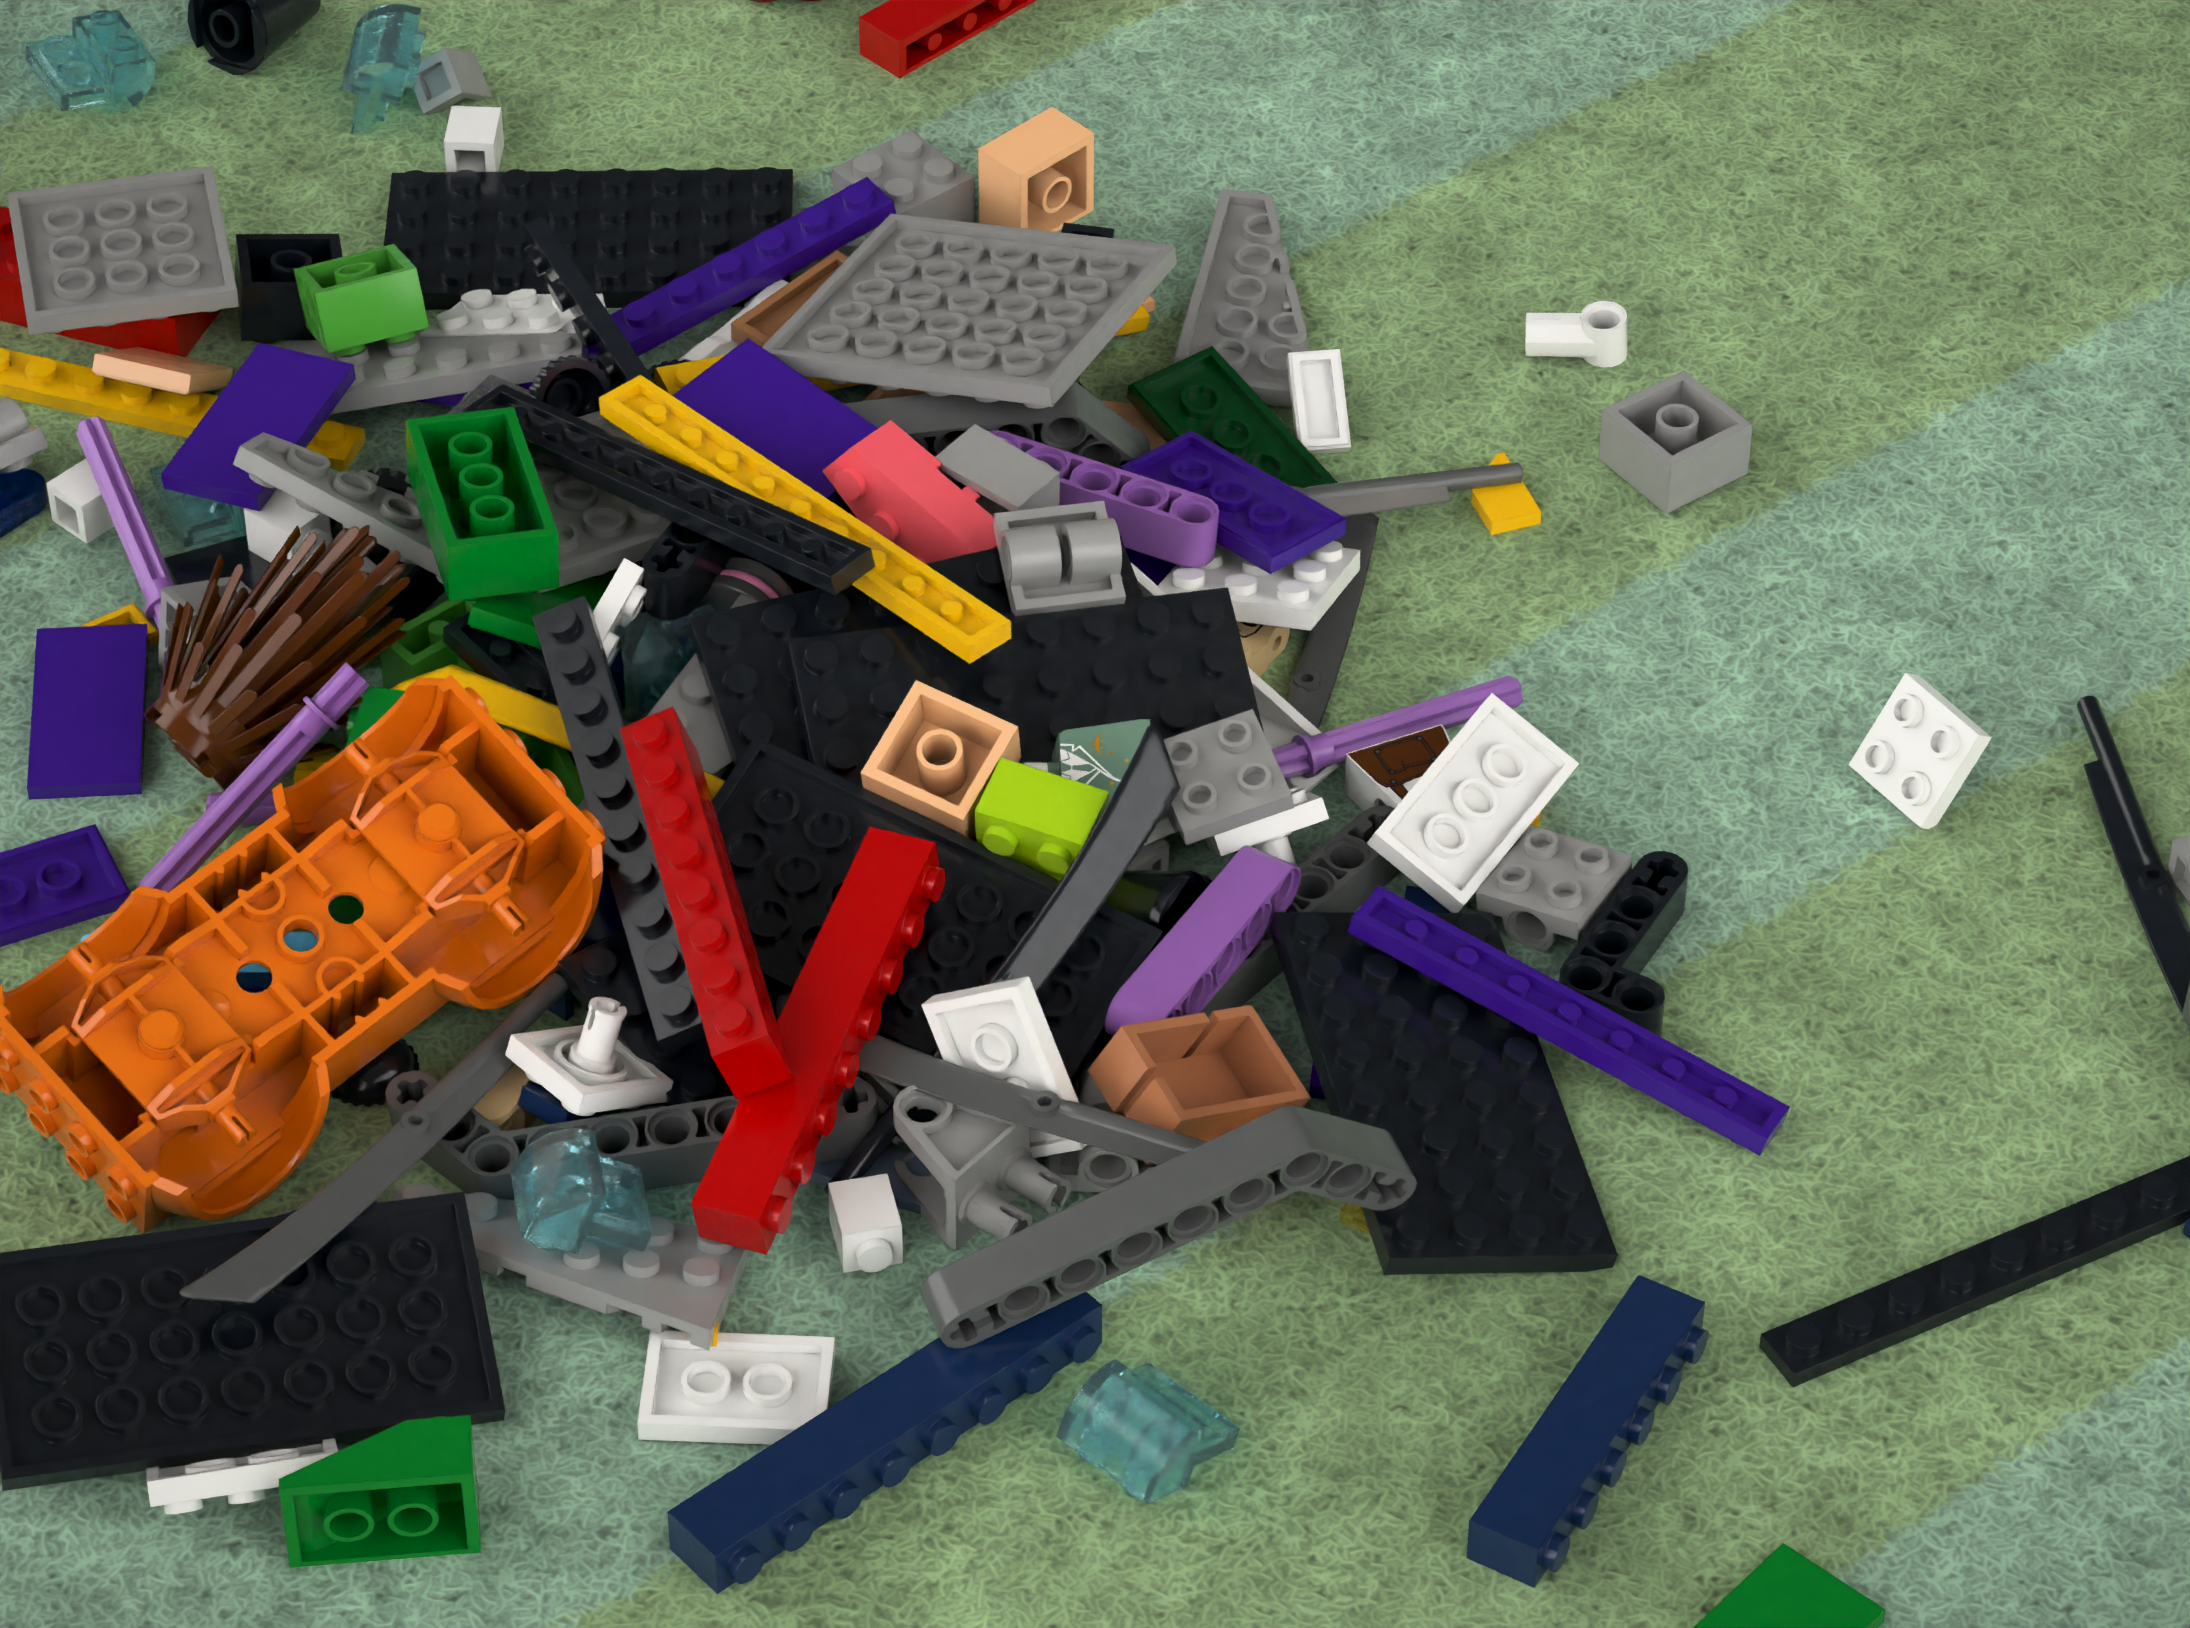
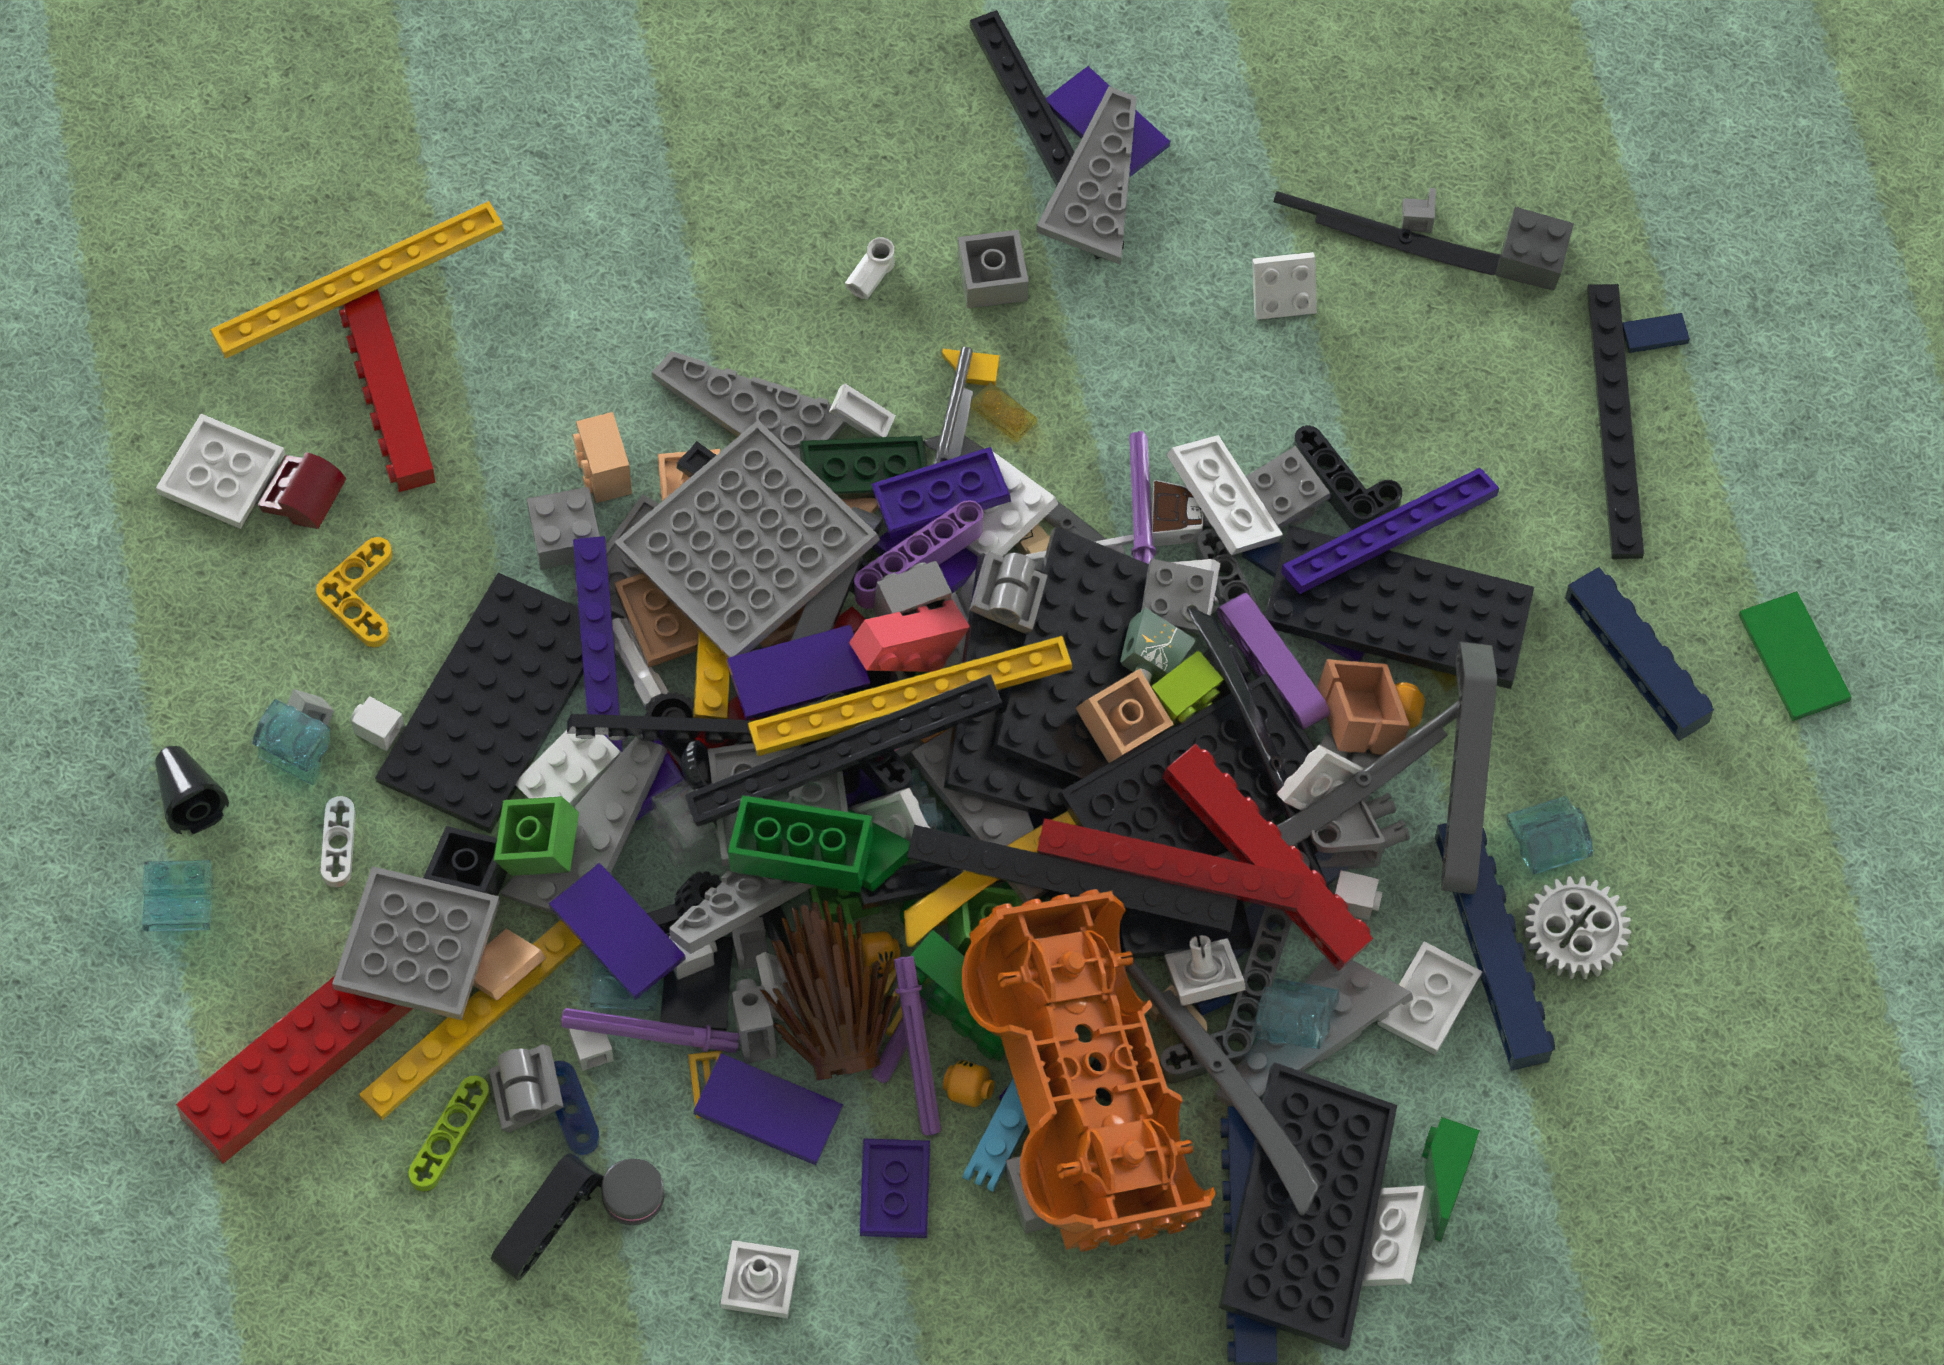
camera: 65 degrees left, 20 degrees up
(283, 165) = (345, 863): none -> white beam
(672, 49) = (347, 587): none -> yellow beam
(991, 1530) = (1602, 944): none -> white gear
(1449, 553) = (1003, 412): none -> clear yellow plate
(1894, 492) = (1093, 191): none -> light grey wing
(1966, 432) = (1024, 94): none -> black plate
(2053, 488) = (1077, 103): none -> dark purple tile

